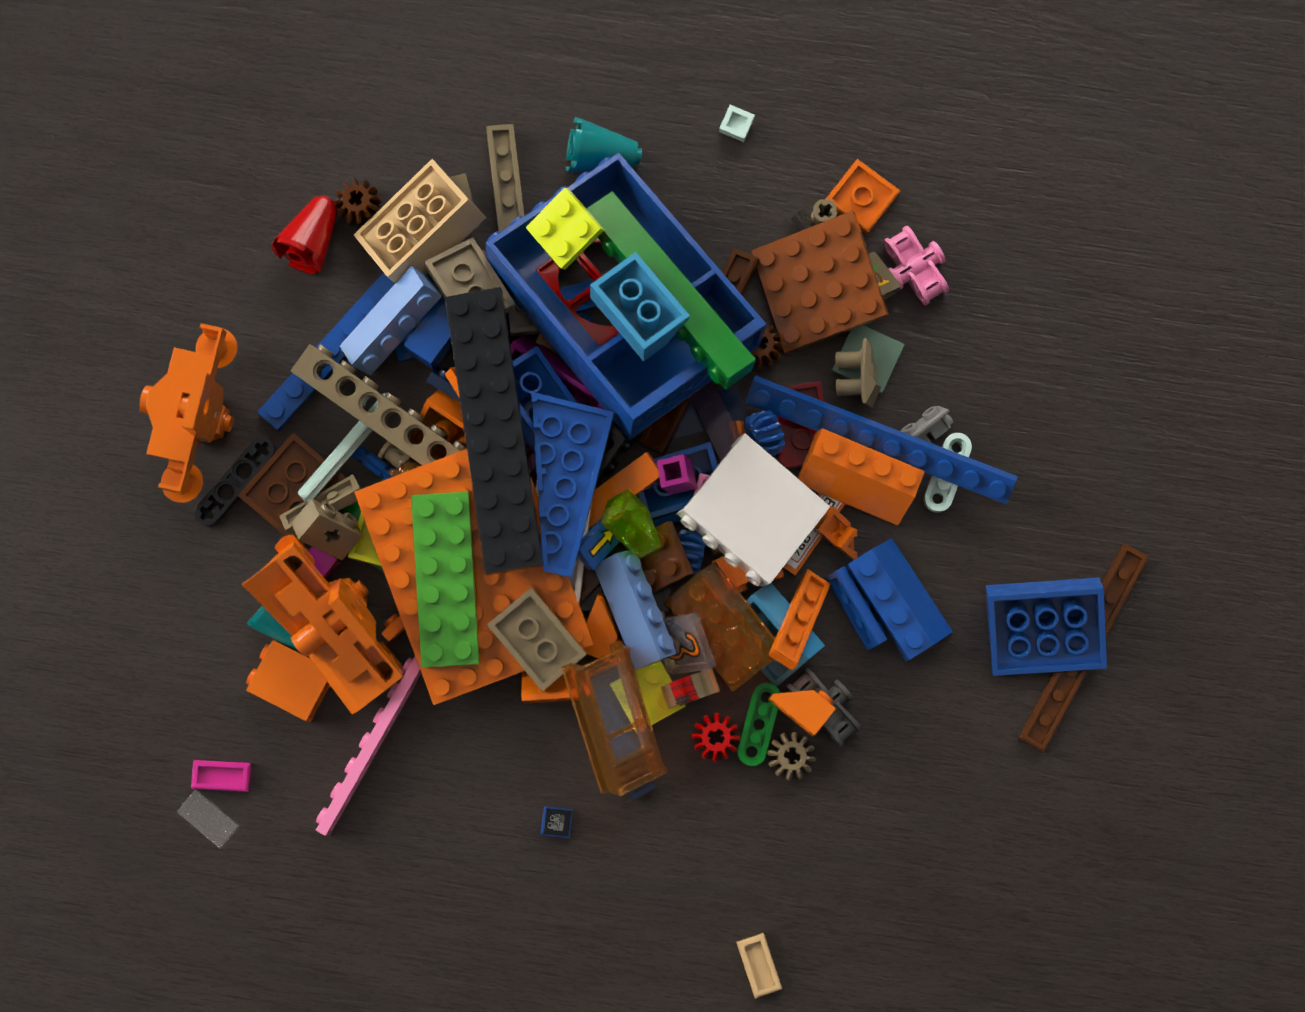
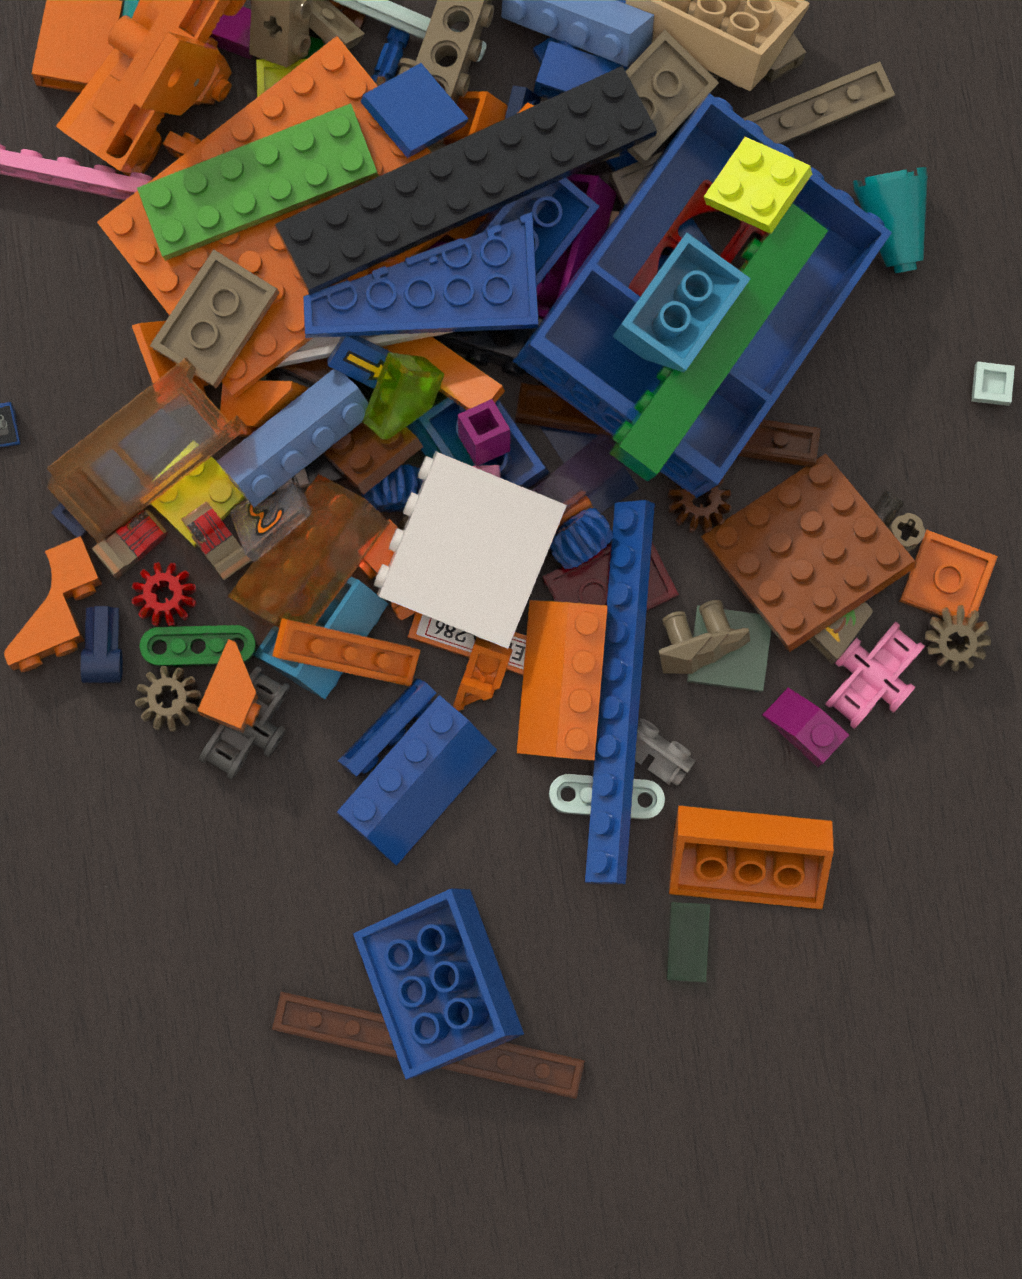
camera: 65 degrees right, 0 degrees up
(429, 452) = (414, 110): none -> blue tile
(672, 751) = (130, 543): none -> leg
(714, 821) = (53, 624): none -> orange arch
(745, 793) = (102, 657): none -> dark blue piece
(917, 206) = (950, 649): none -> dark tan gear
(938, 322) = (805, 726): none -> magenta slope
(1017, 387) = (751, 857): none -> orange slope
(1062, 448) = (688, 942): none -> clear green tile

